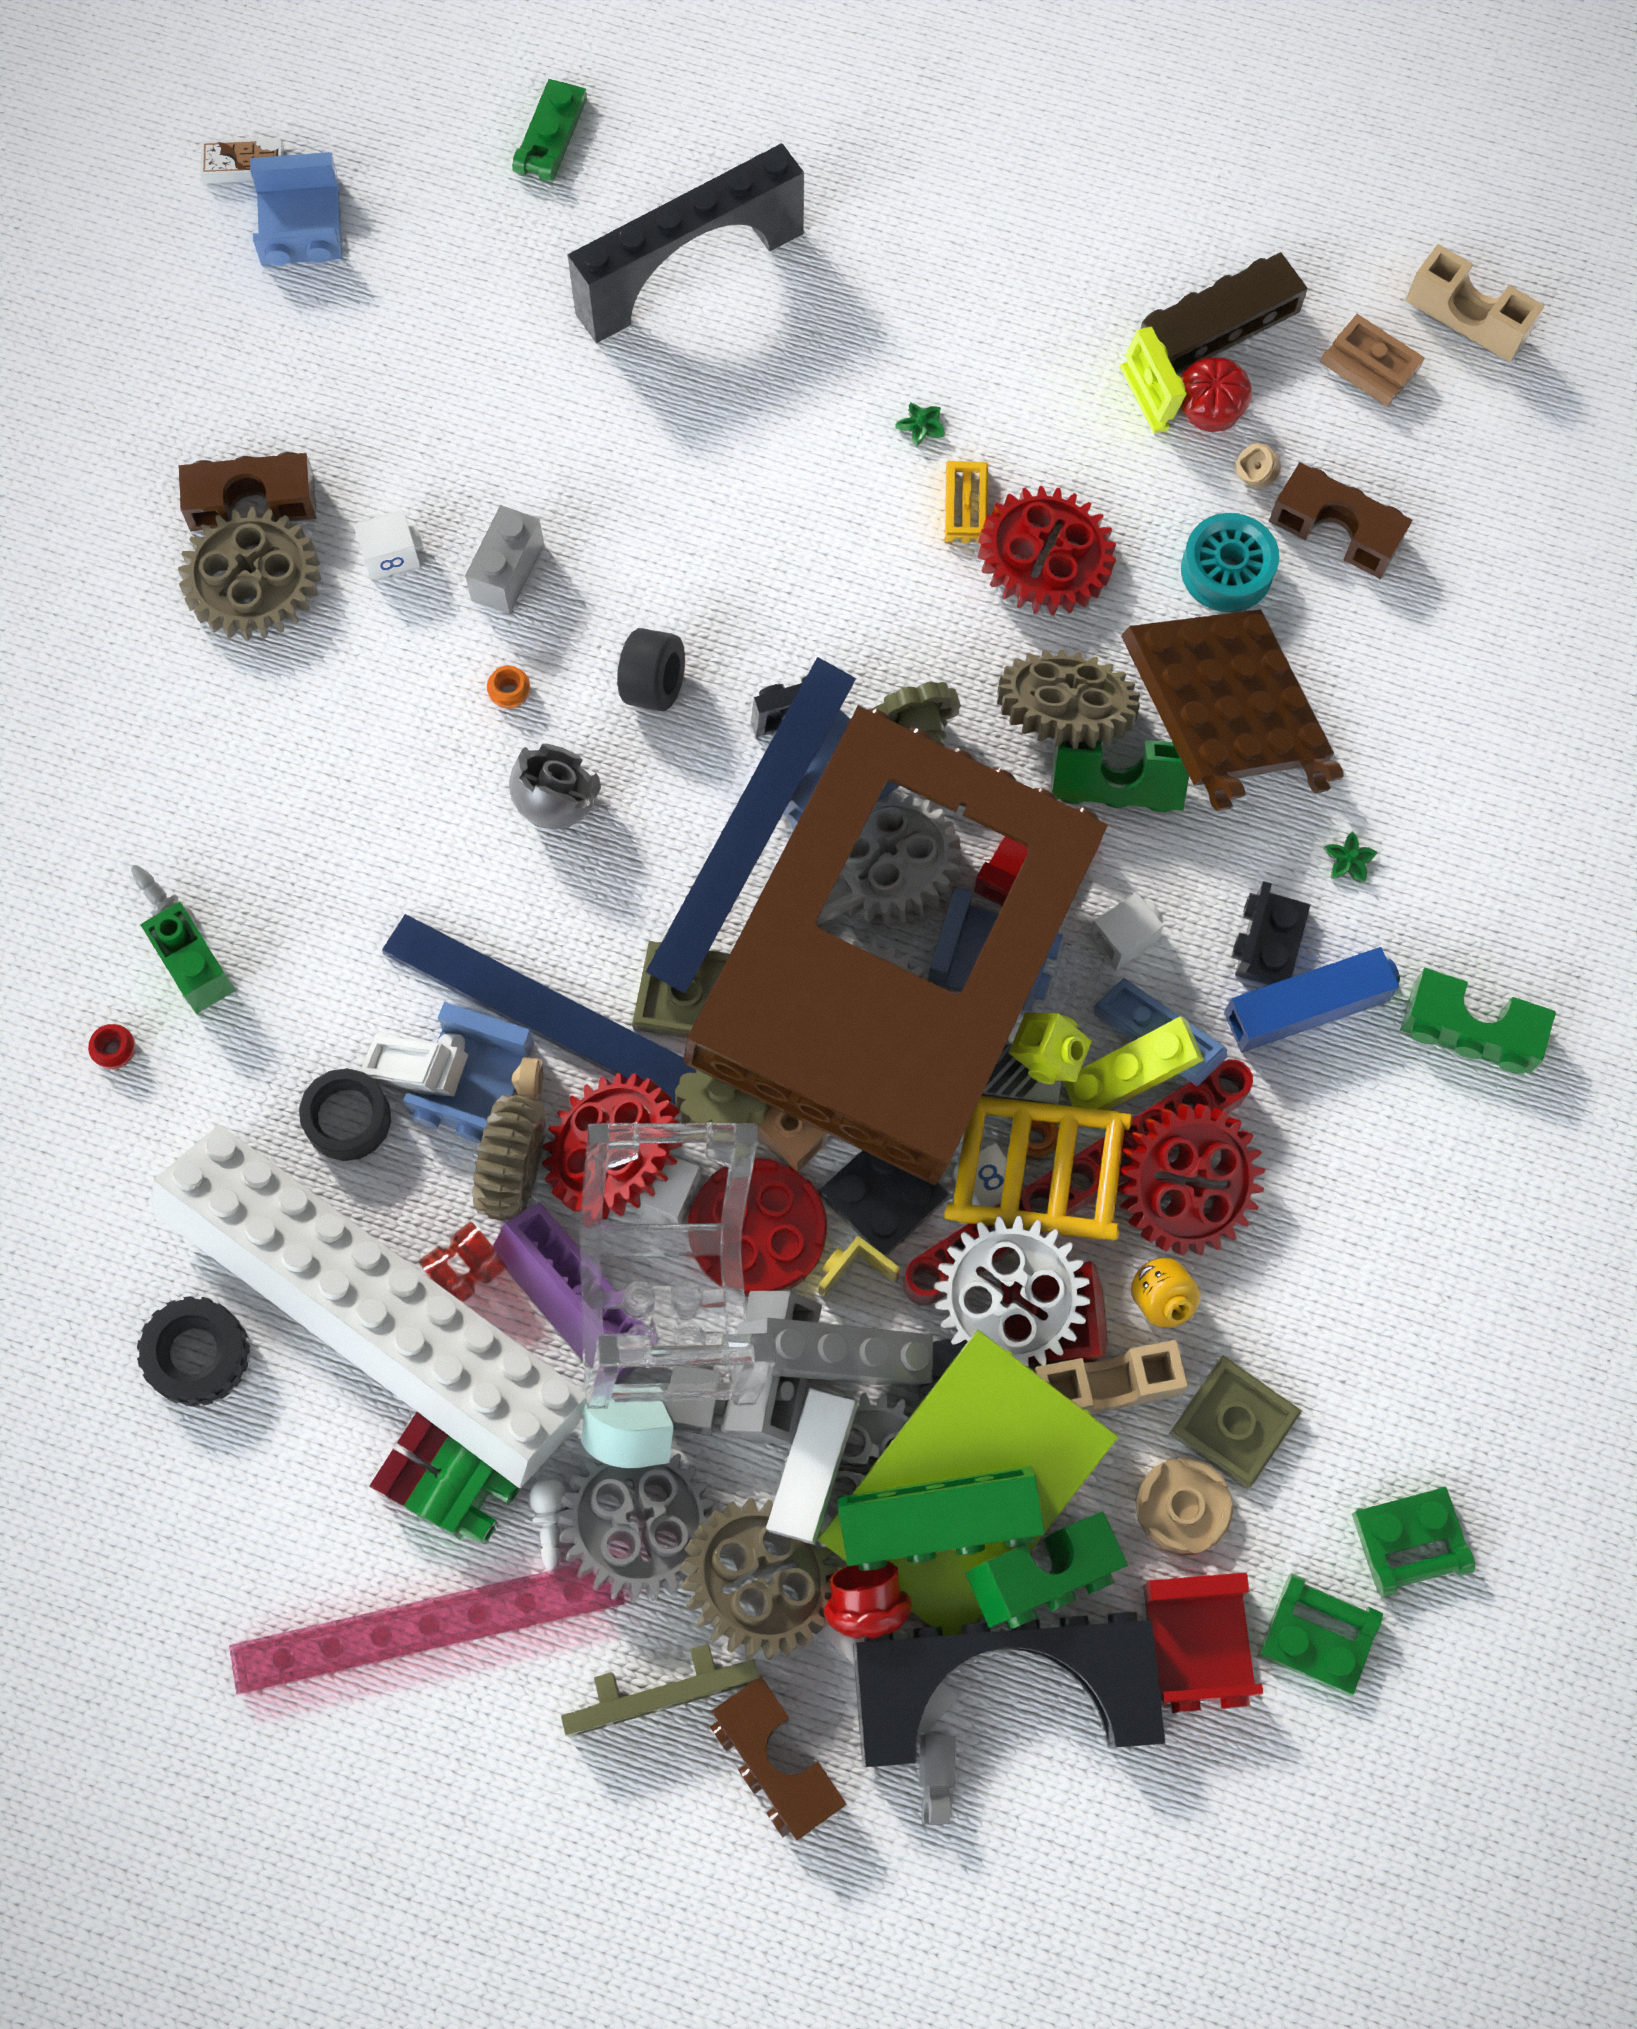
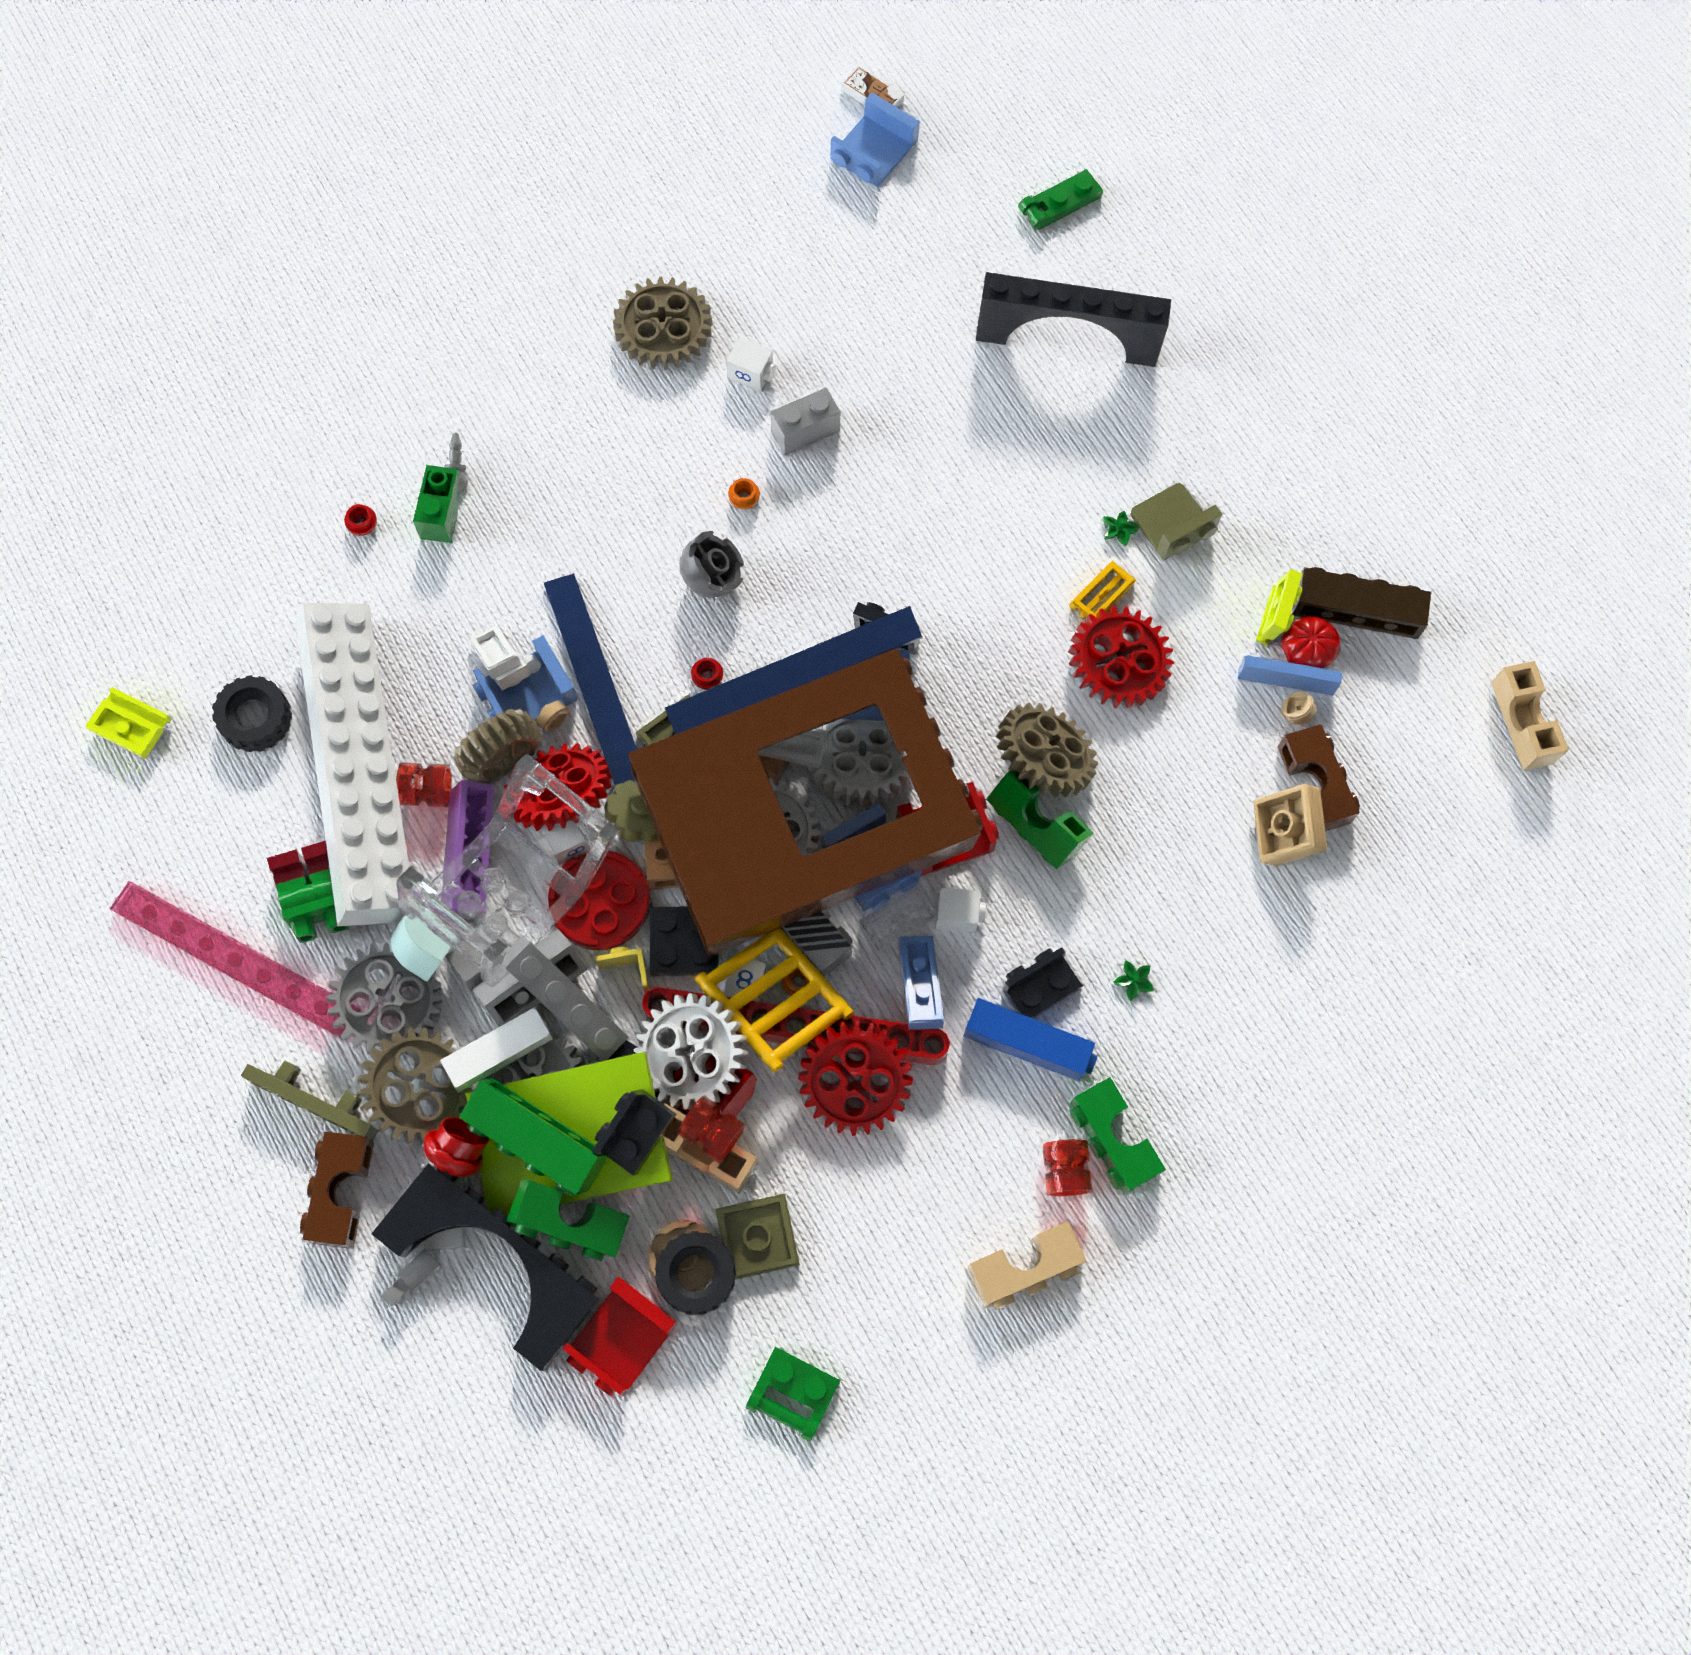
camera: 40 degrees right, 0 degrees up
(59, 1479) = (128, 723): none -> neon yellow plate
(217, 486) = (687, 262): reddish brown arch -> none
(329, 1084) = (435, 632): black tyre -> none
(546, 1502) = (347, 949): white bar -> none
(647, 891) = (704, 665): none -> red plate
(651, 669) = (826, 544): black tyre -> none
(923, 708) = (949, 690): olive plant -> none
(972, 373) = (1175, 520): none -> olive bracket
(1042, 1417) = (633, 1130): none -> black bracket
(1050, 1047) = (839, 934): neon yellow brick -> none
(1115, 1348) = (711, 1129): none -> clear red wheel
(1136, 1067) = (883, 988): neon yellow plate -> none
(1165, 1292) = (782, 1129): yellow head -> none
(1221, 440) = (1289, 675): none -> medium blue tile
(1230, 702) = (1142, 828): reddish brown plate -> none
(1234, 539) = (1248, 734): teal wheel -> none
(1255, 1500) = (667, 1273): none -> black tyre
(1315, 1650) = (679, 1401): green plate -> none
(1336, 582) = (1290, 825): none -> tan brick
(1372, 360) = (1432, 701): medium nougat plate -> none
(1463, 1091) = (1067, 1167): none -> clear red wheel
(1529, 1184) = (999, 1280): none -> tan arch

